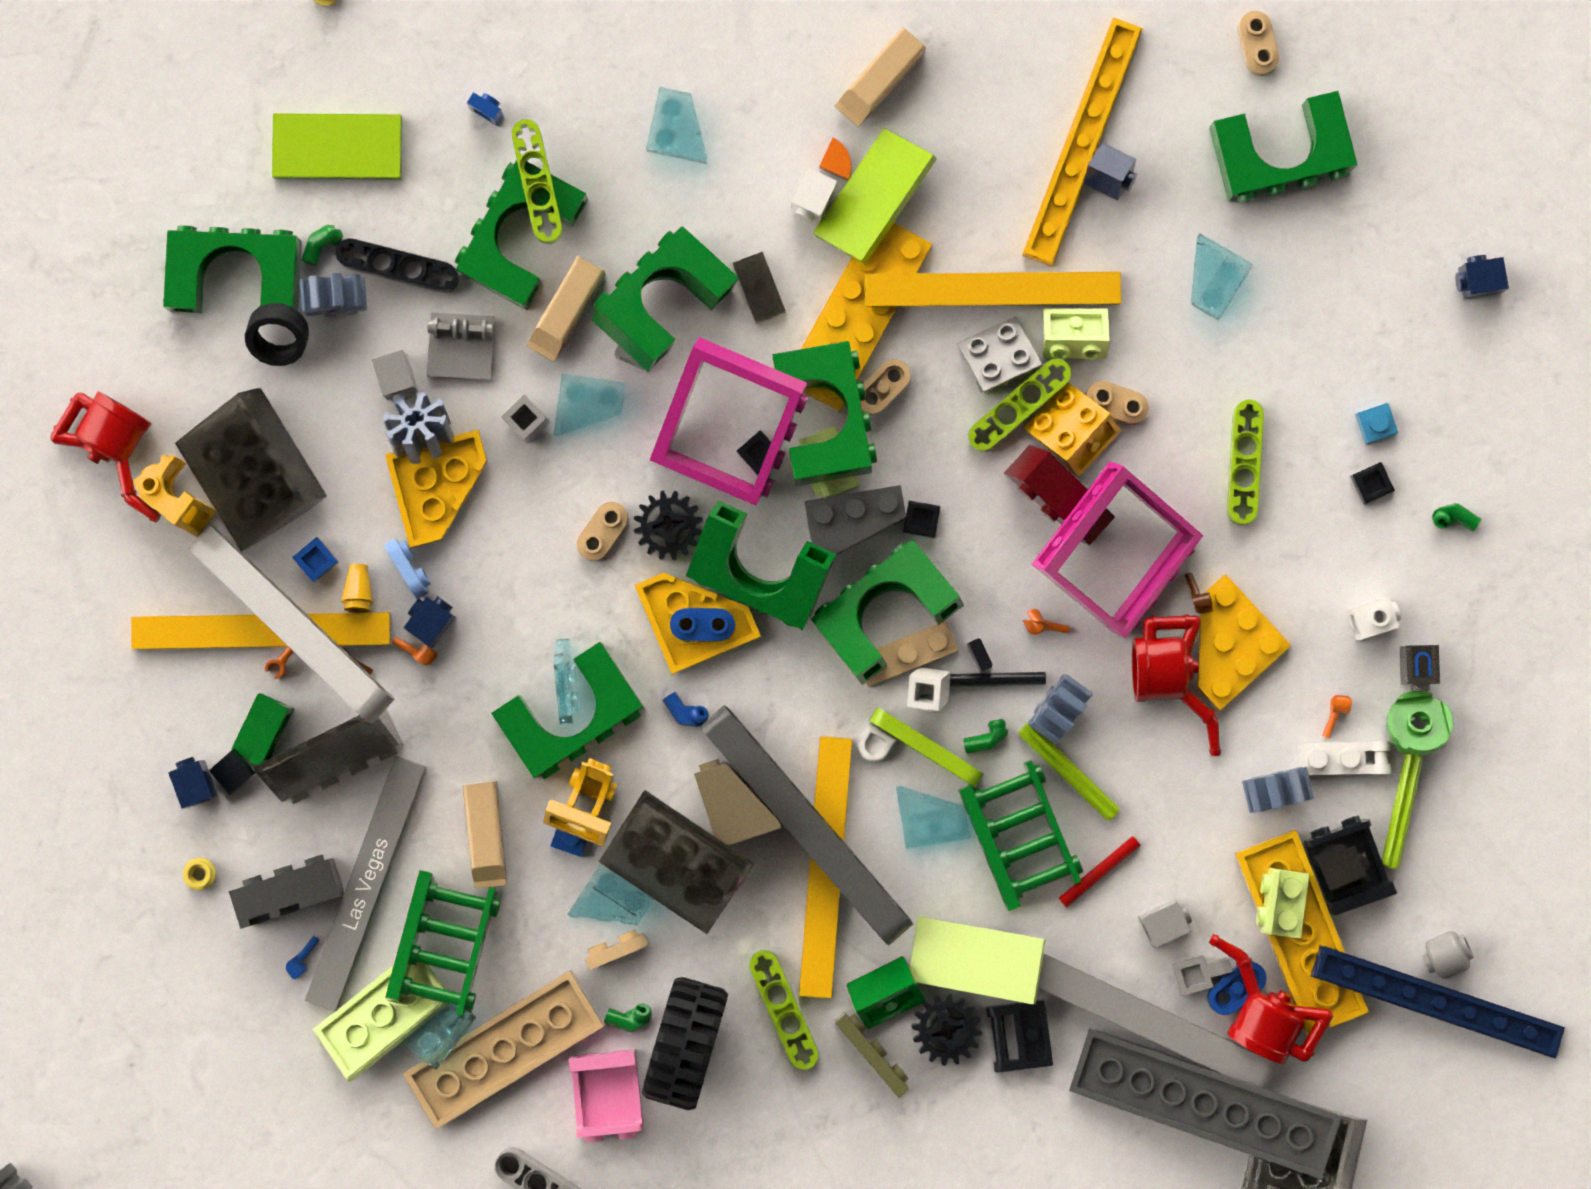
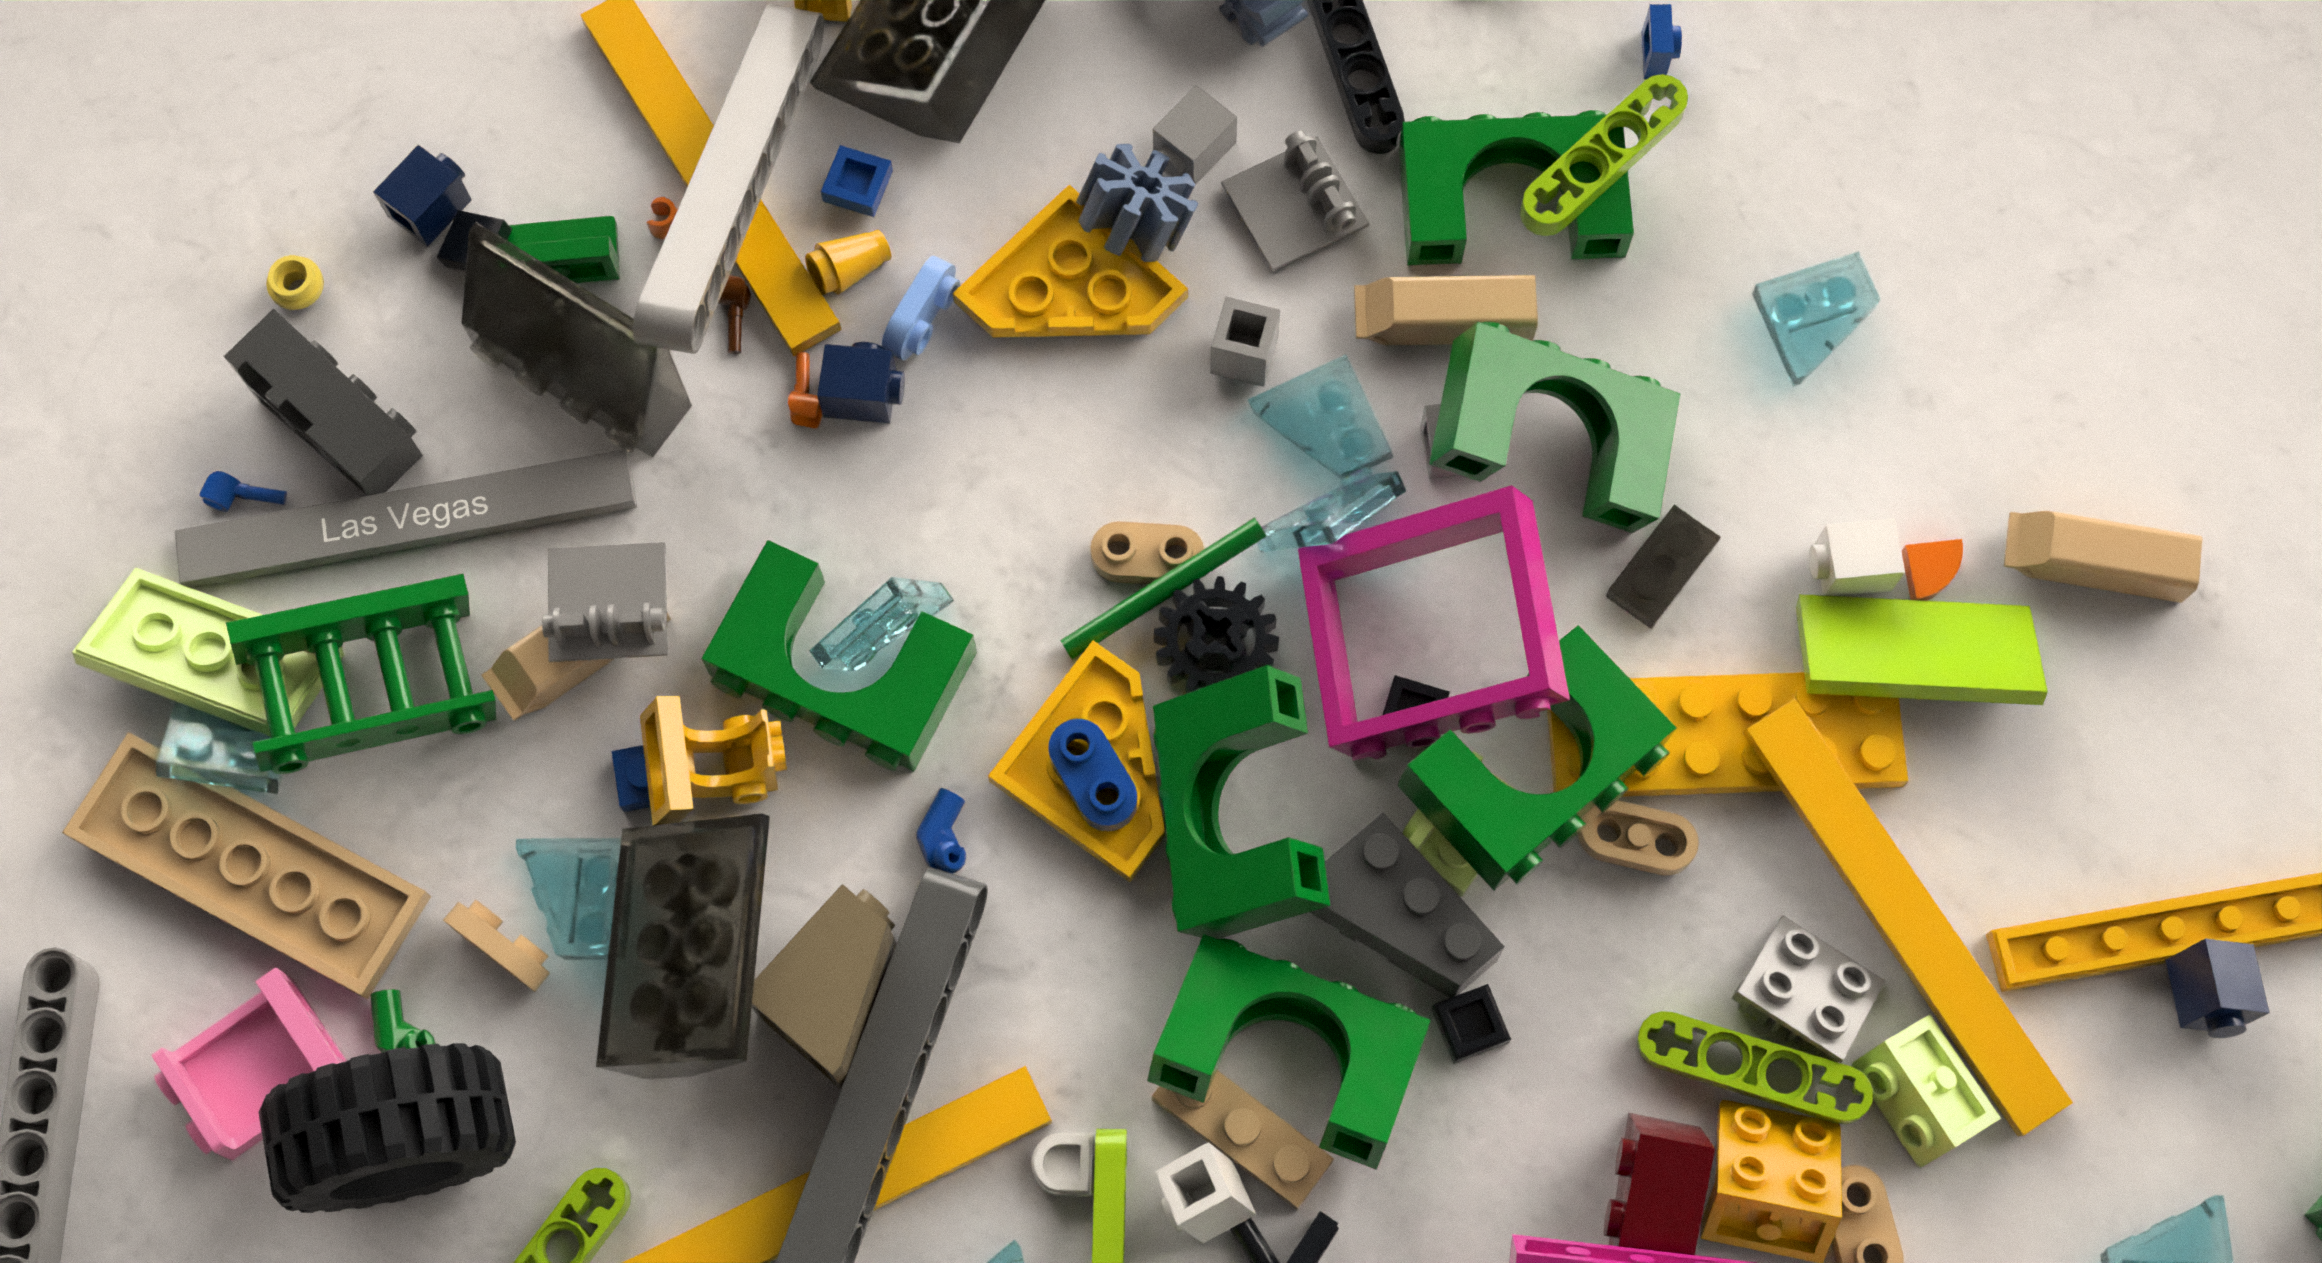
camera: 60 degrees right, 15 degrees down
(479, 808) = (606, 602): none -> light grey hinge
(627, 535) = (1163, 587): none -> green bar
(640, 431) = (1333, 513): none -> clear light blue wing

